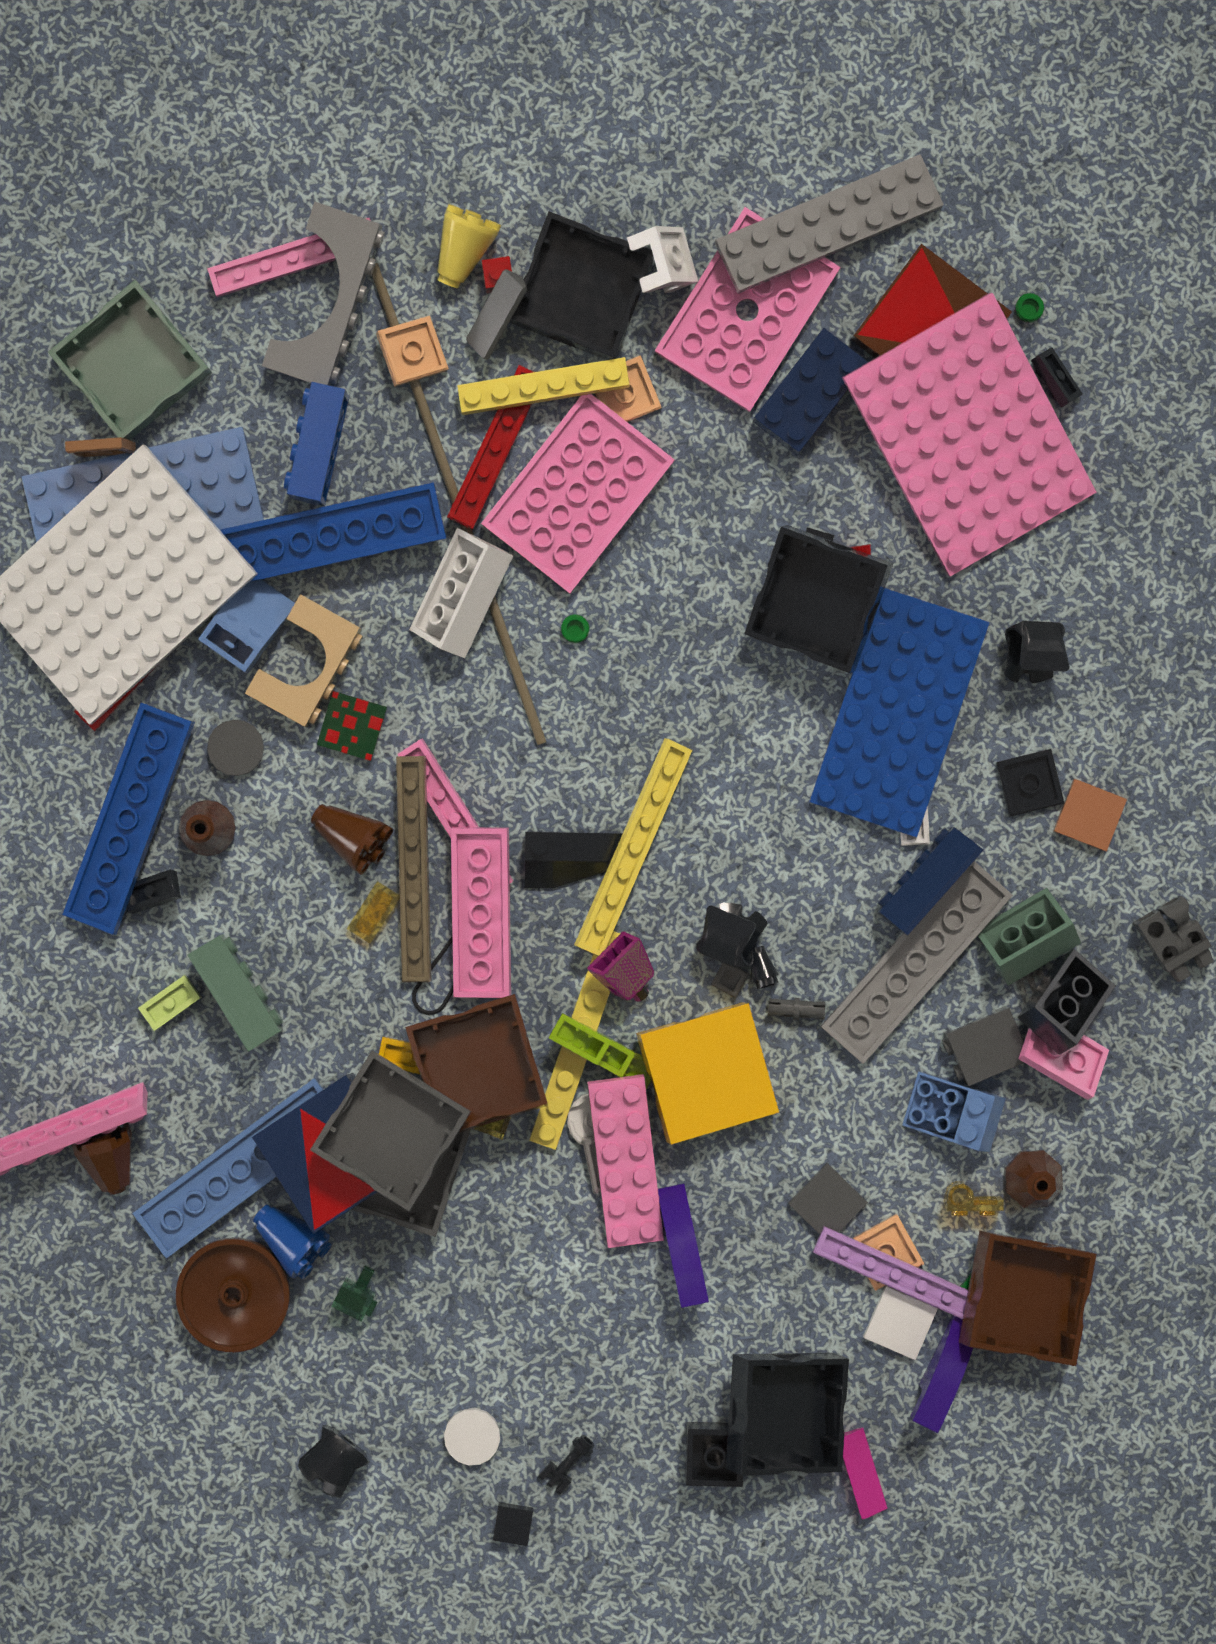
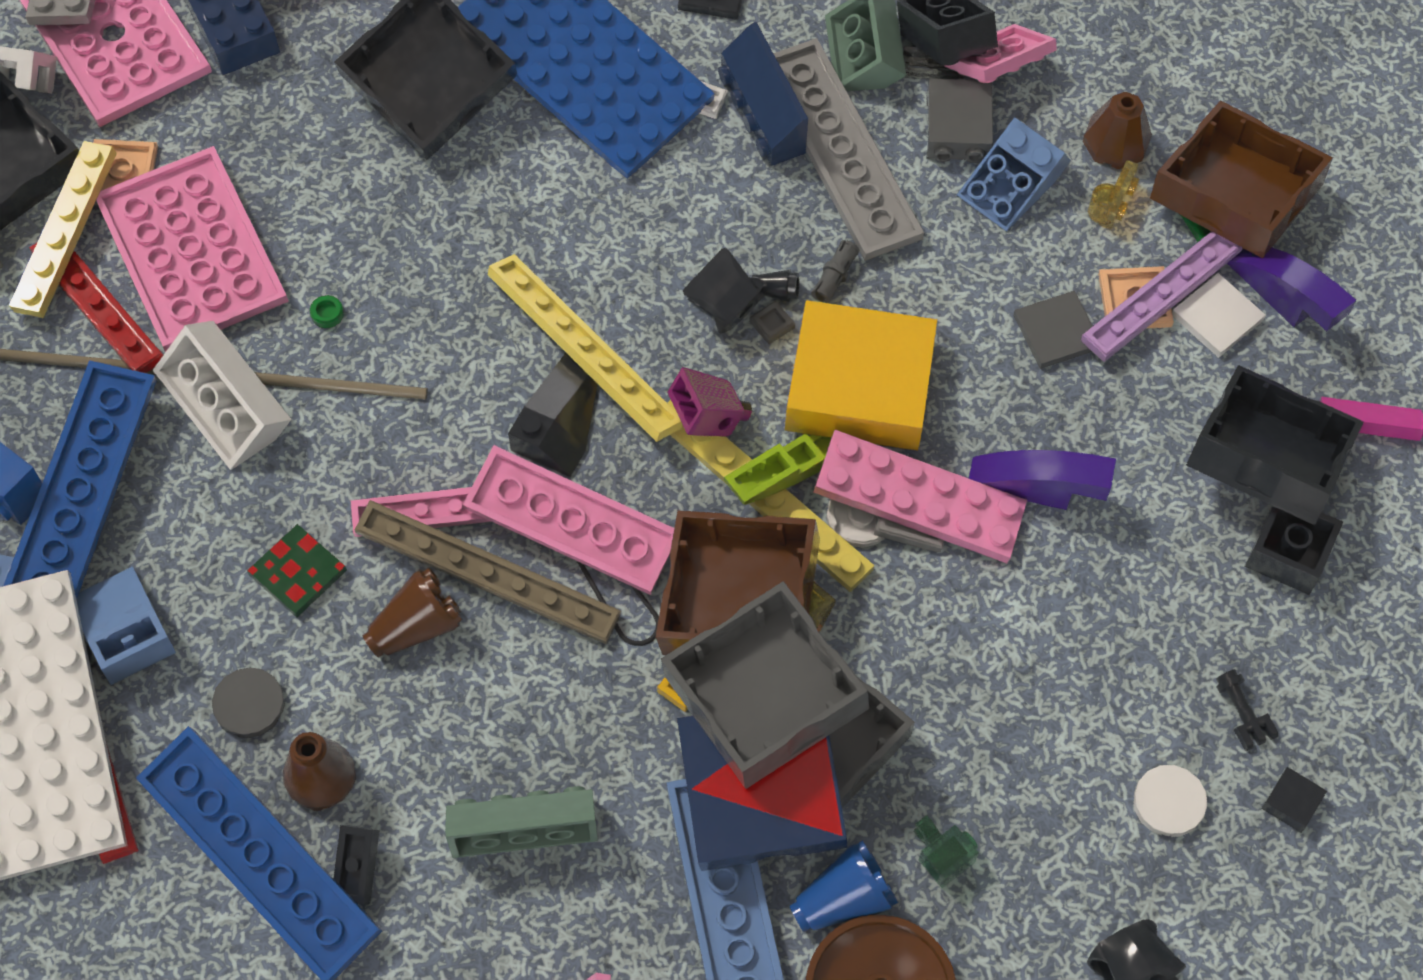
camera: 70 degrees left, 25 degrees down
(169, 1002) = (495, 908): yellowish green plate -> none
(302, 702) = (191, 539): tan arch -> none
(373, 912) = (513, 639): clear yellow plate -> none

